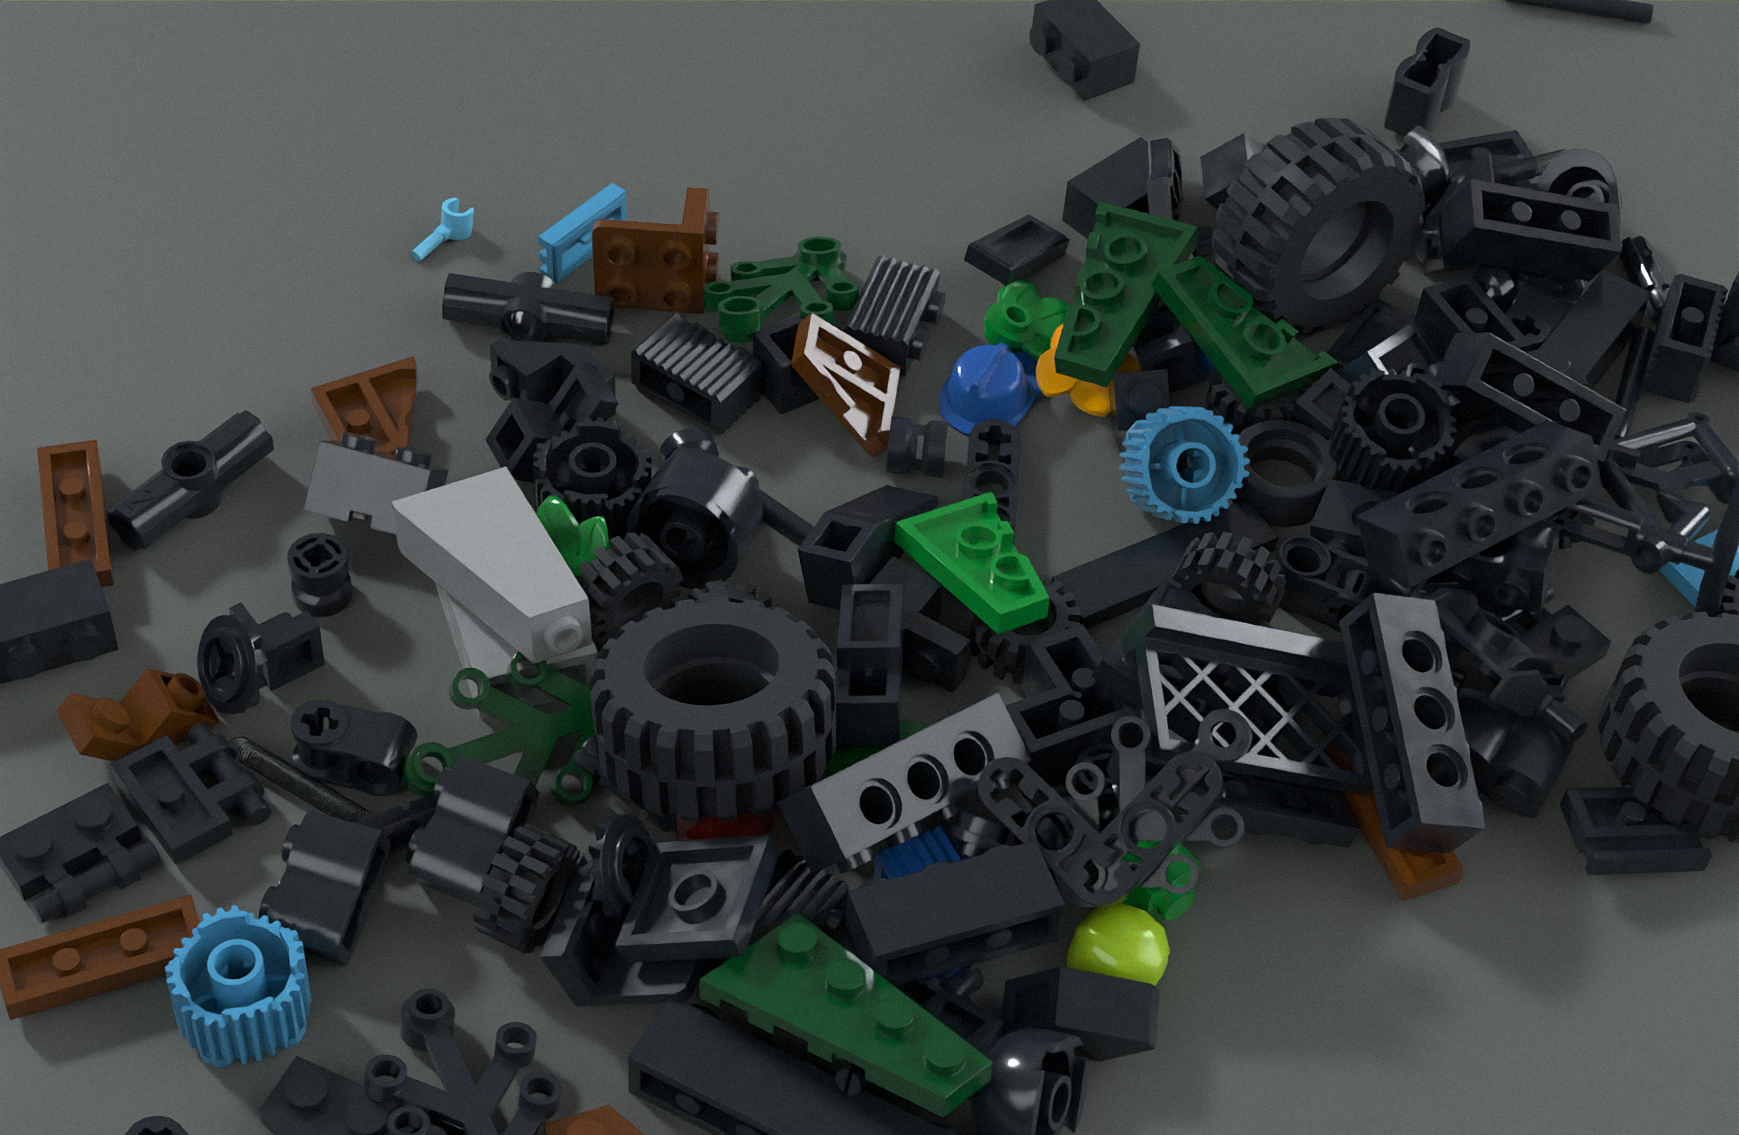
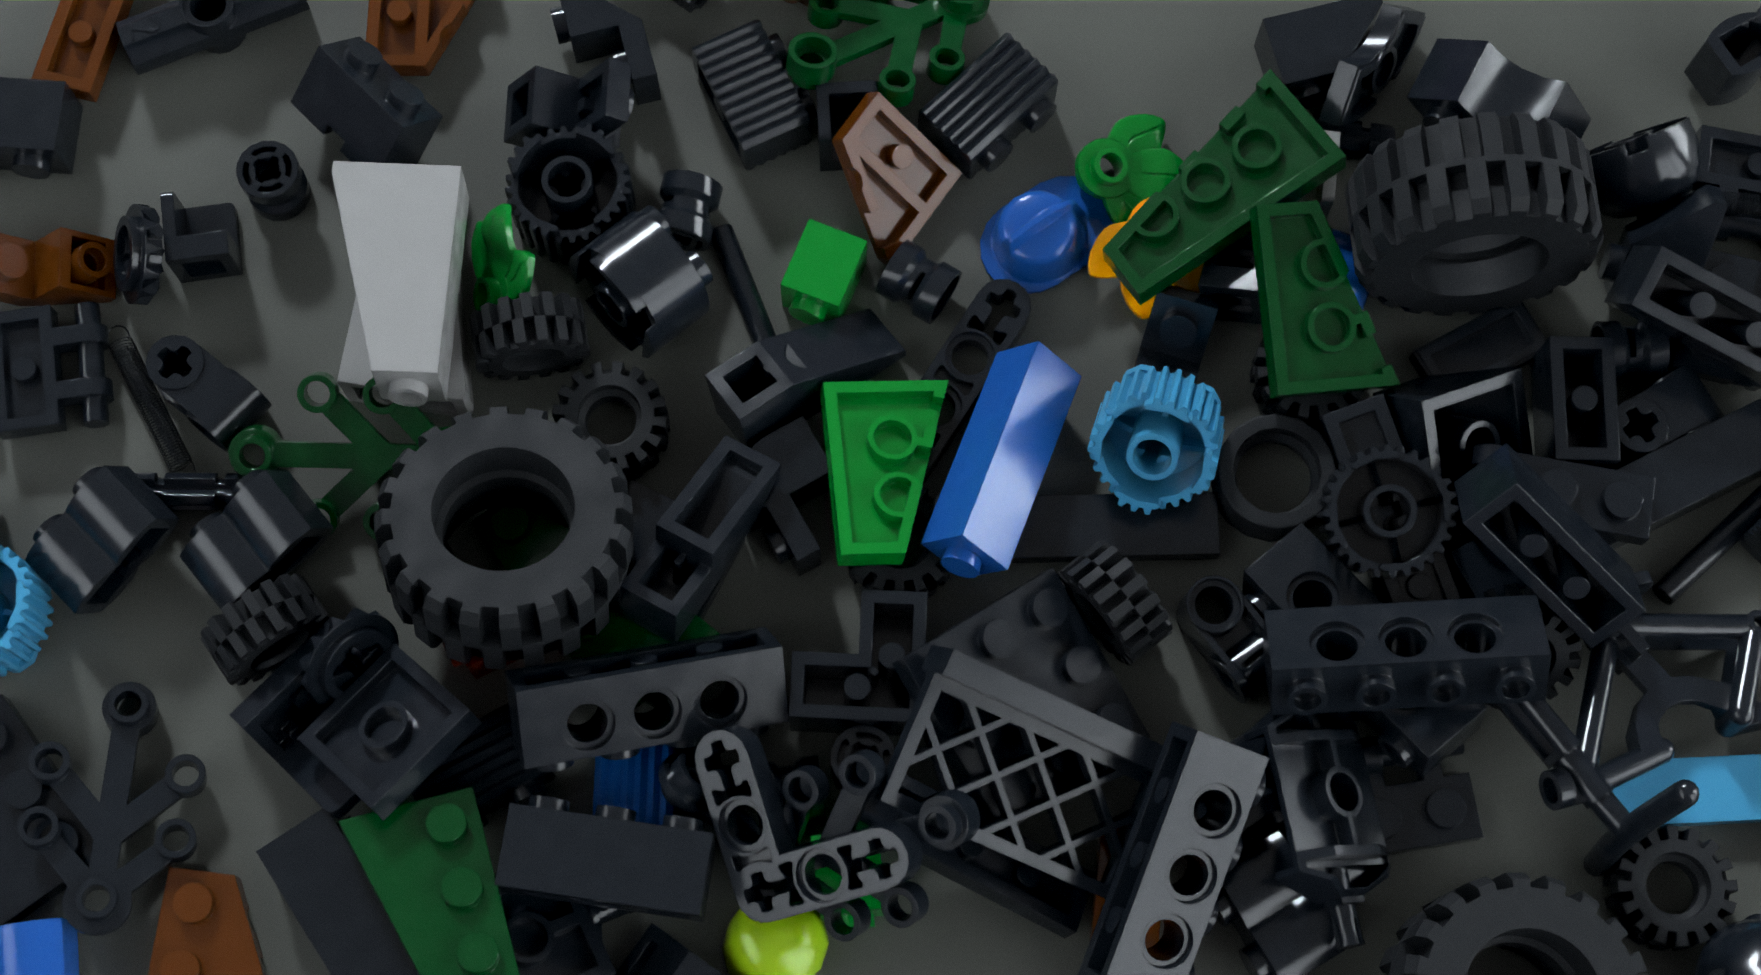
camera: 30 degrees right, 25 degrees up
(835, 465) = (823, 273): none -> green brick
(1016, 249) = (1169, 74): black tile -> none
(1073, 526) = (1001, 461): none -> blue brick

